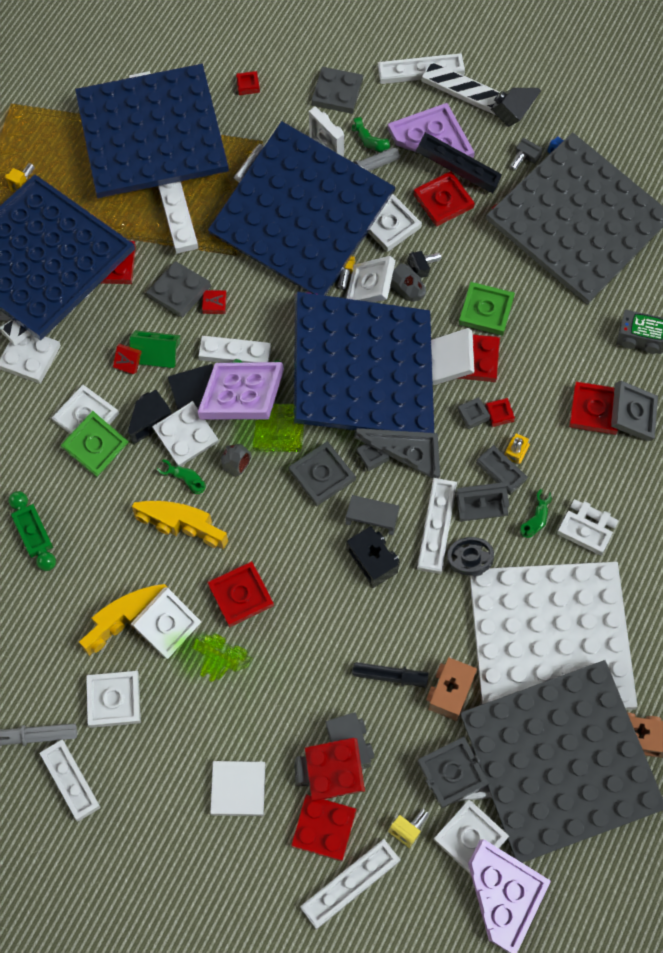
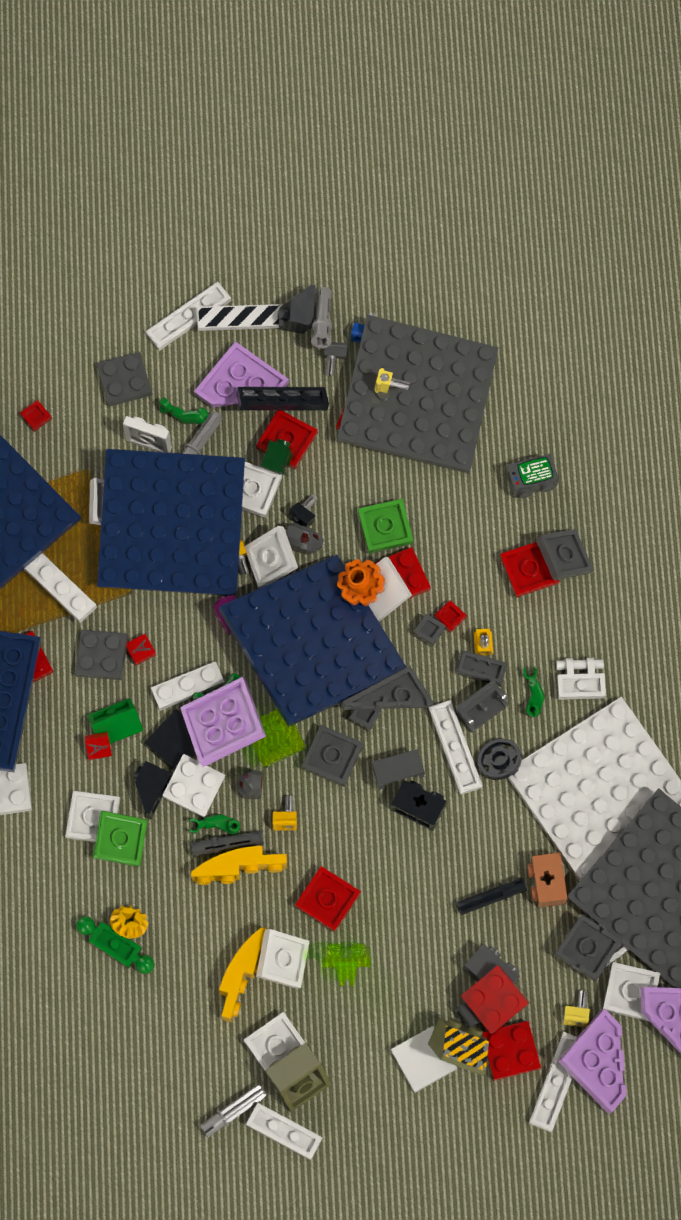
camera: 30 degrees left, 5 degrees up
(53, 524) = (131, 929): none -> yellow gear
(110, 737) = (298, 1077): none -> olive slope
(156, 488) = (227, 843): none -> dark grey pin
(248, 506) = (285, 820): none -> yellow piece
(274, 794) = (460, 1045): none -> slope
(399, 886) = (598, 1061): none -> lavender plate
(425, 204) = (277, 456): none -> dark green window
(435, 339) = (361, 582): none -> orange plant
(528, 122) = (322, 325): none -> light grey pin
(555, 186) = (385, 380): none -> piece

